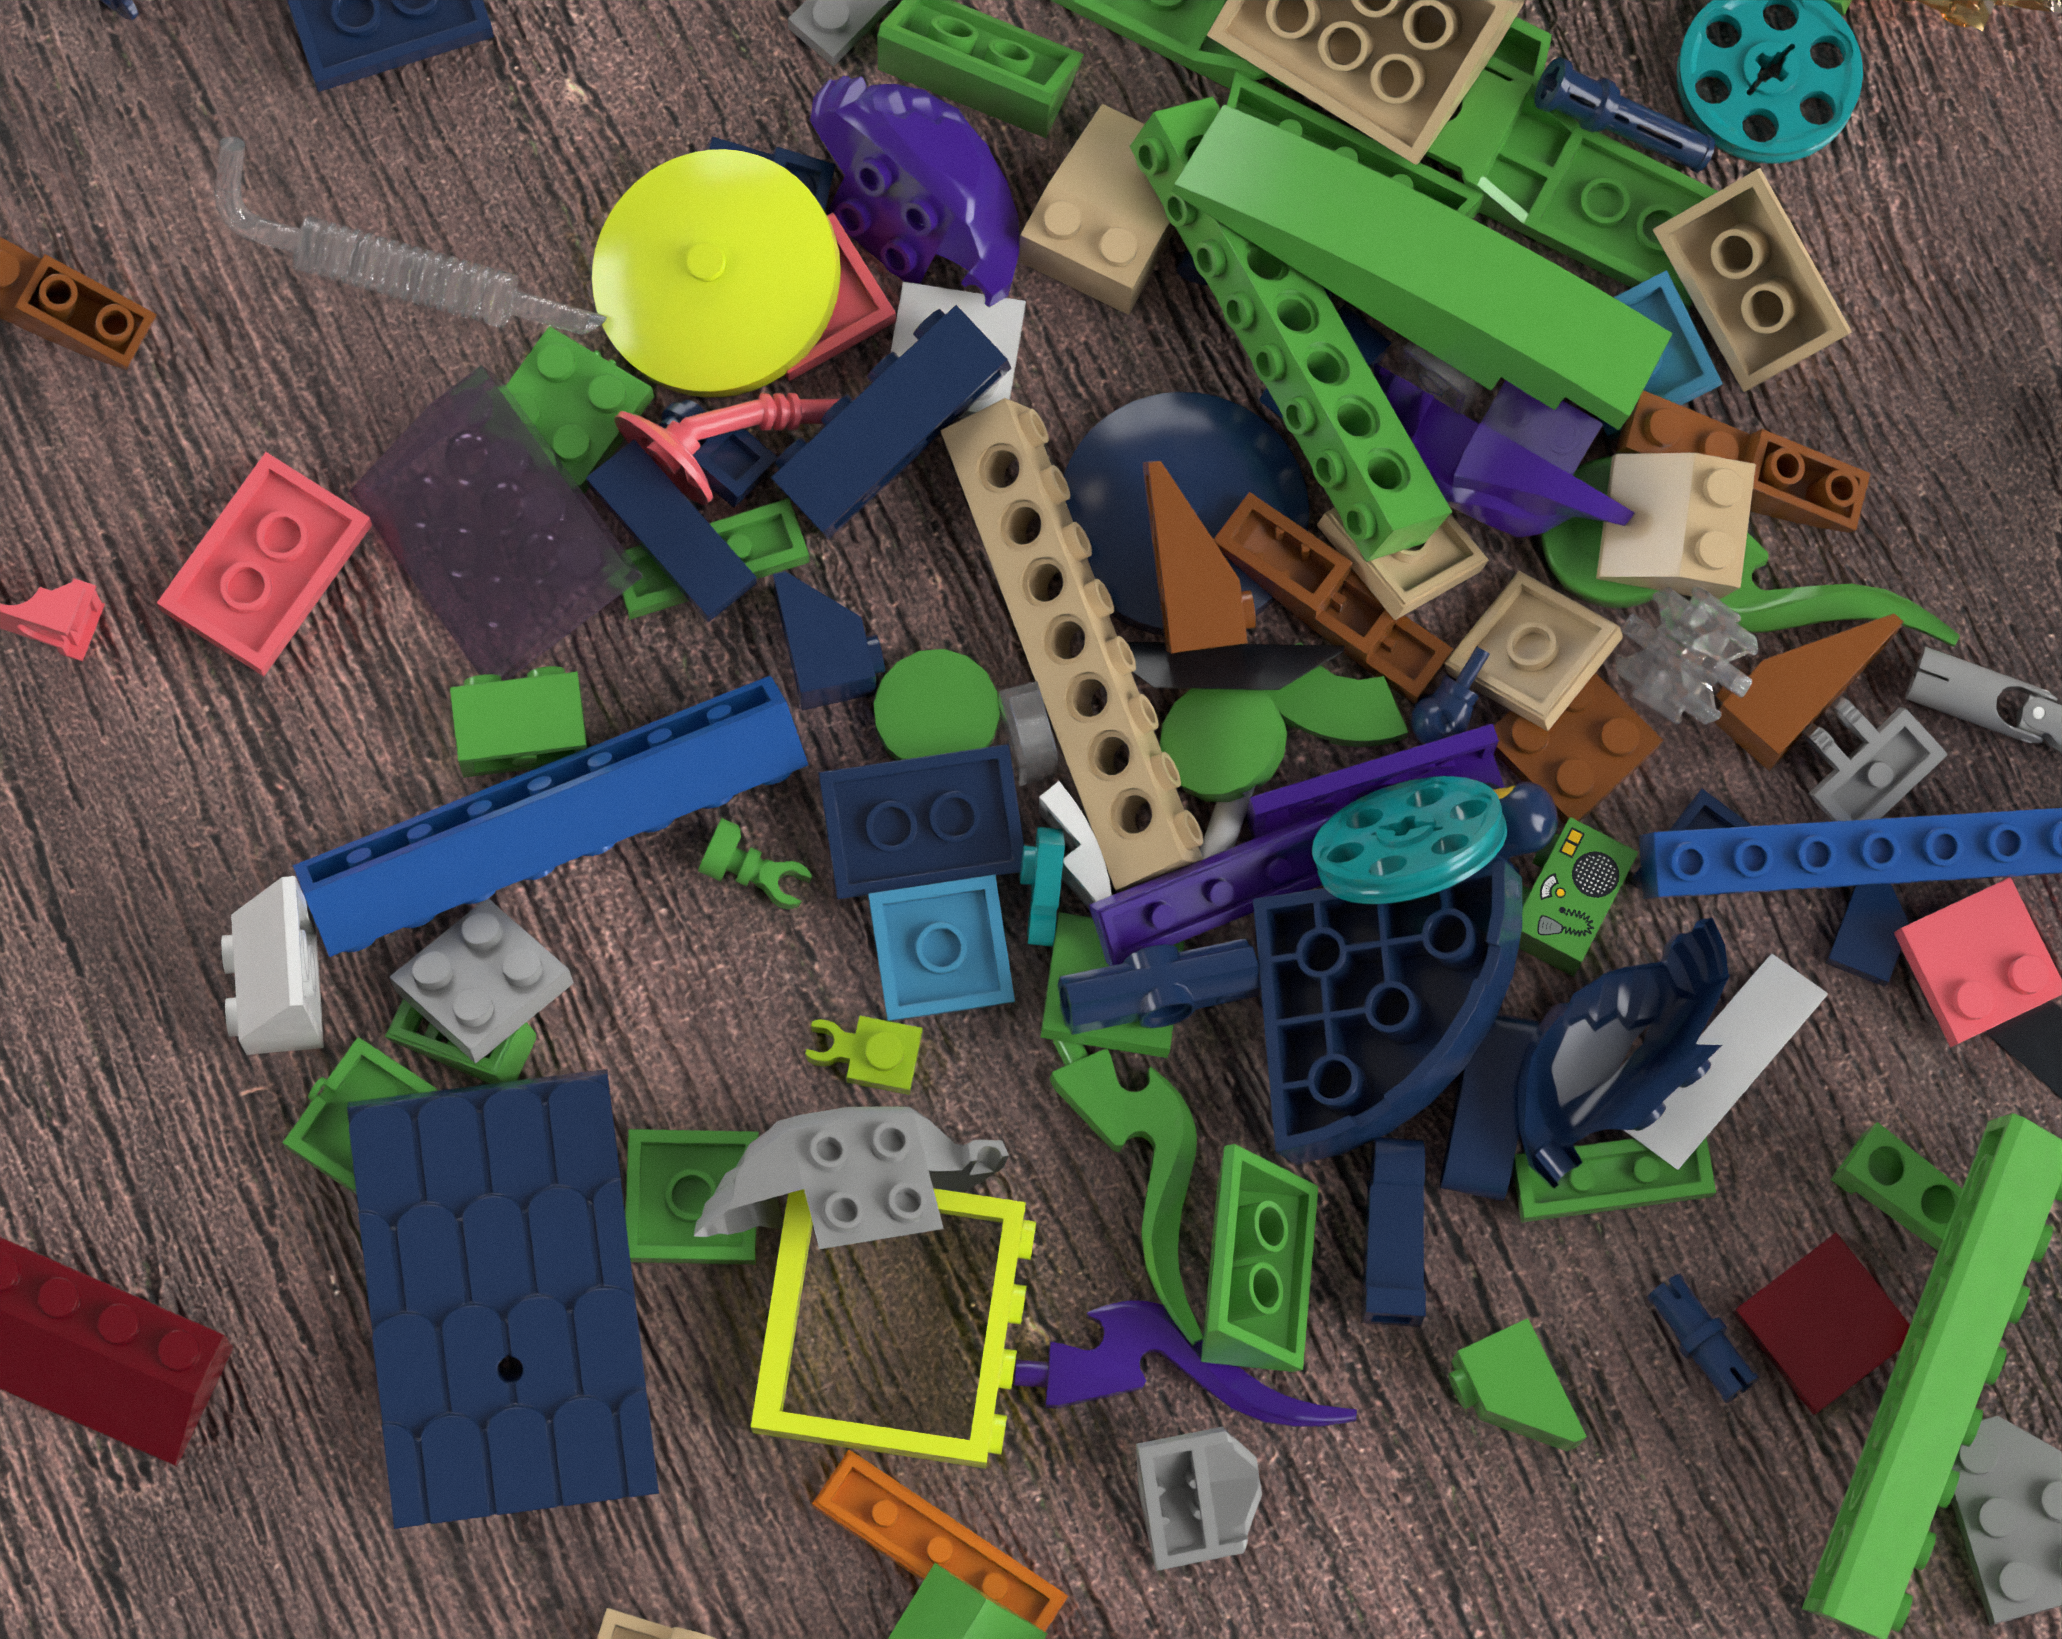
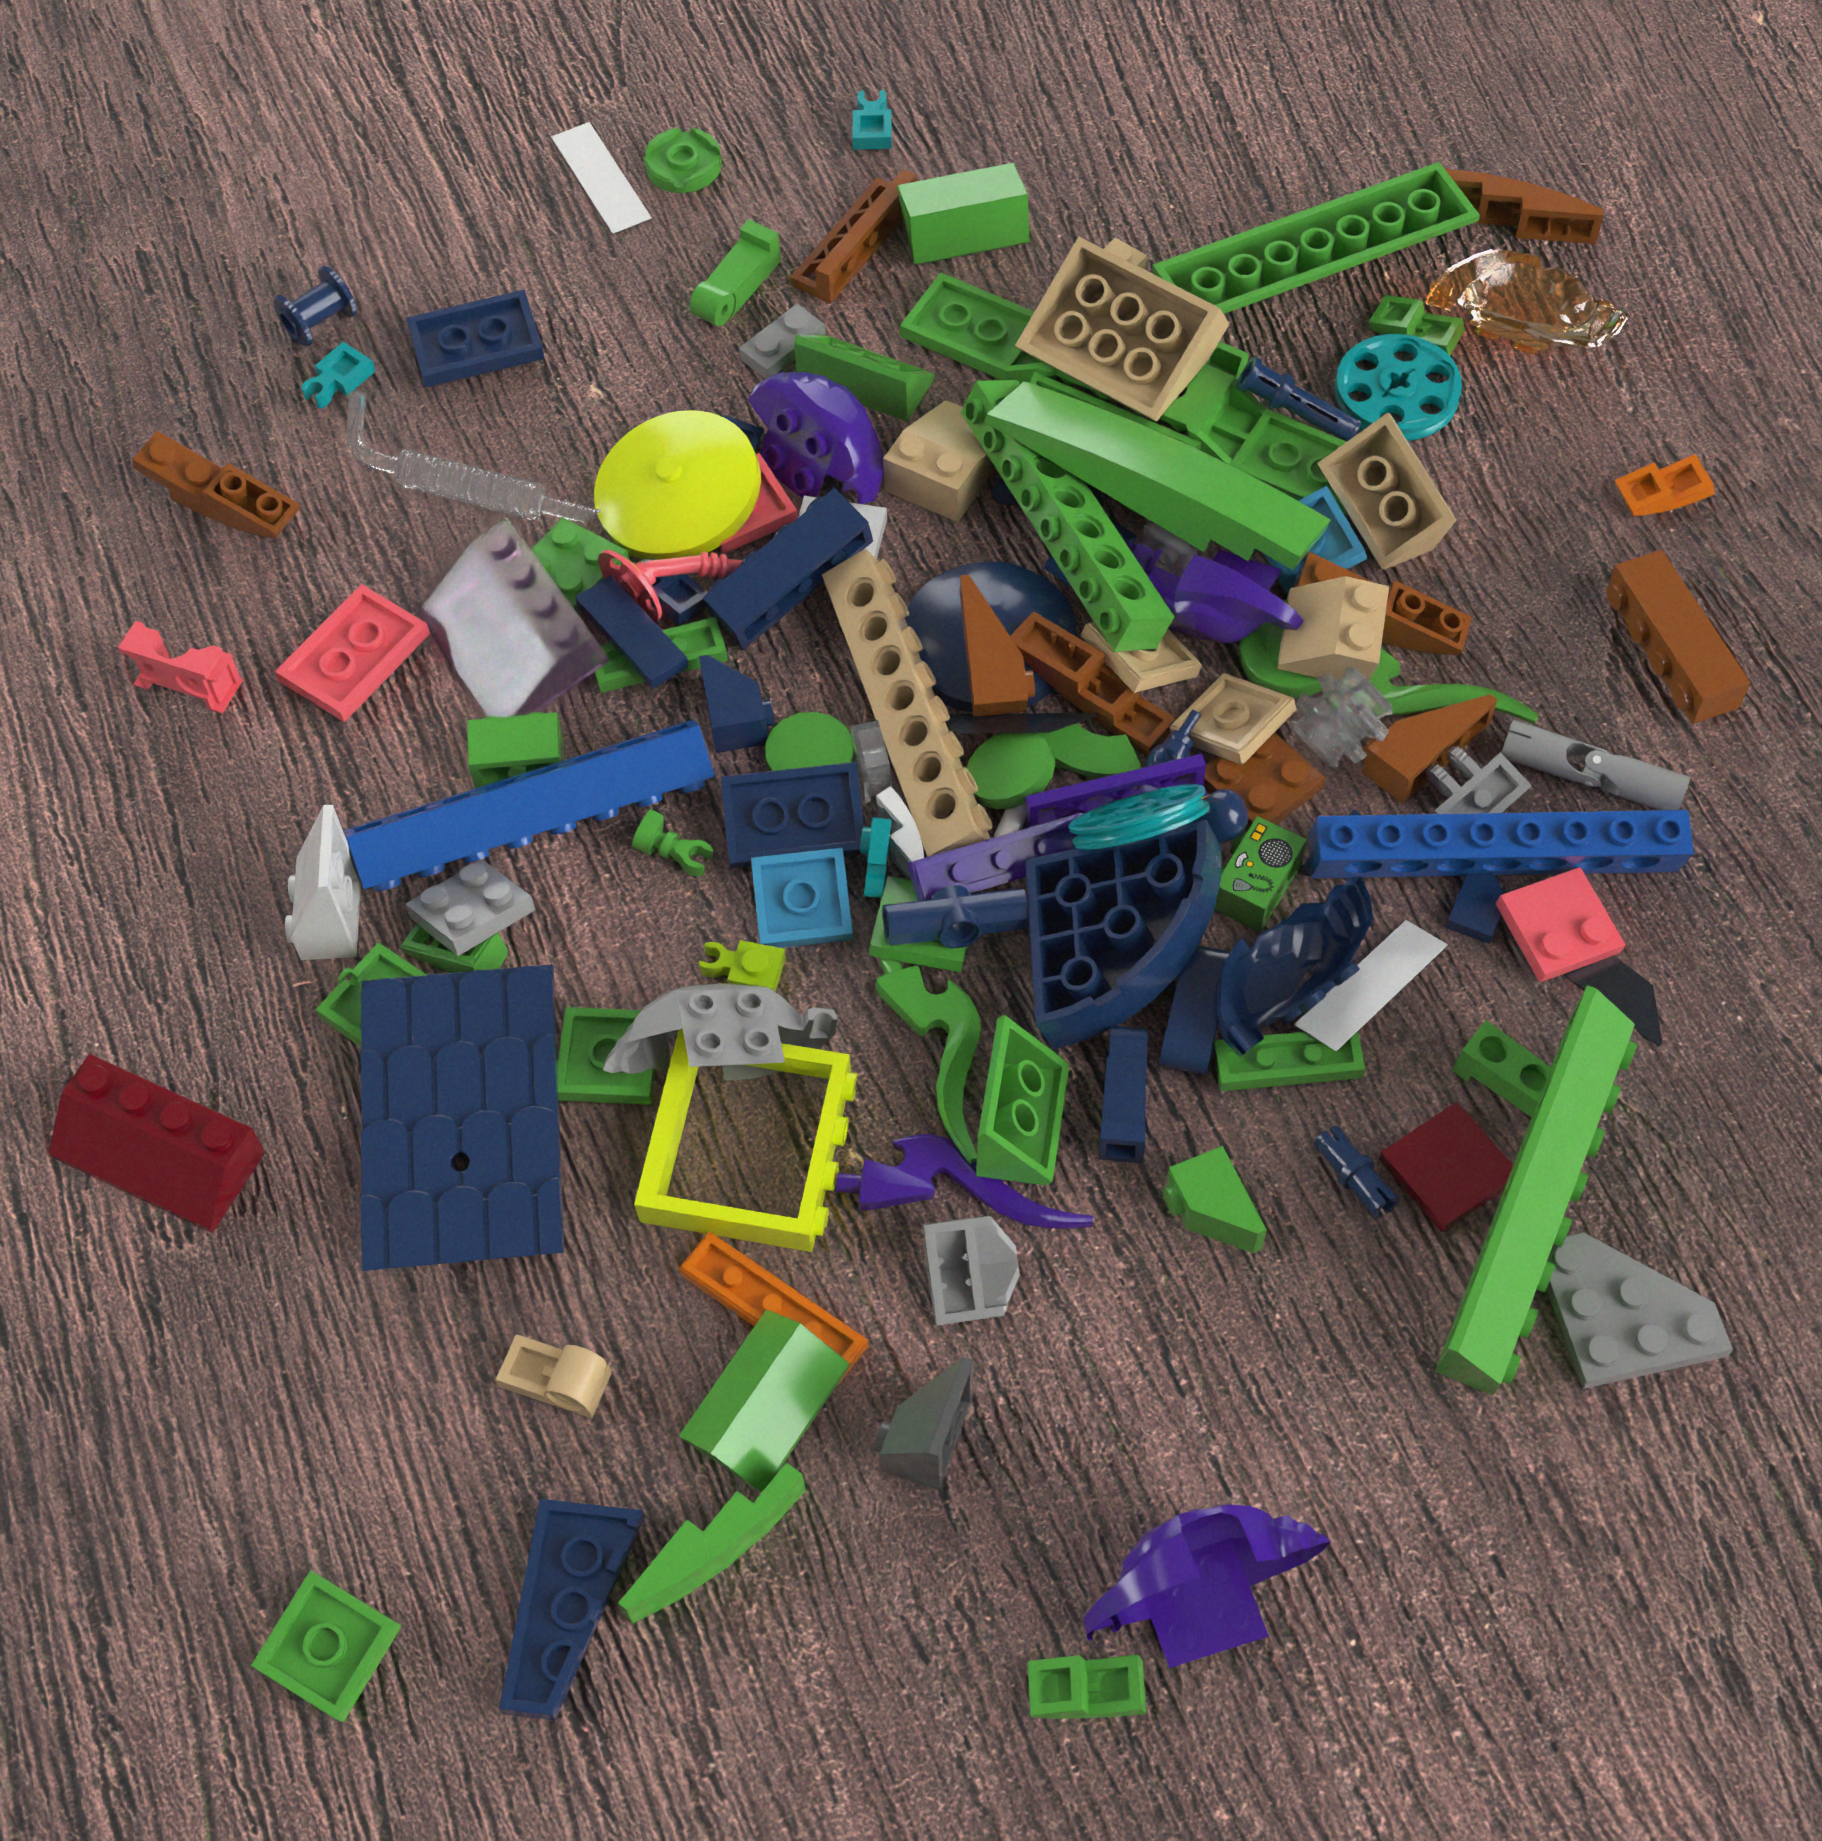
camera: 10 degrees right, 15 degrees down
(187, 69) = (338, 371): none -> teal plate

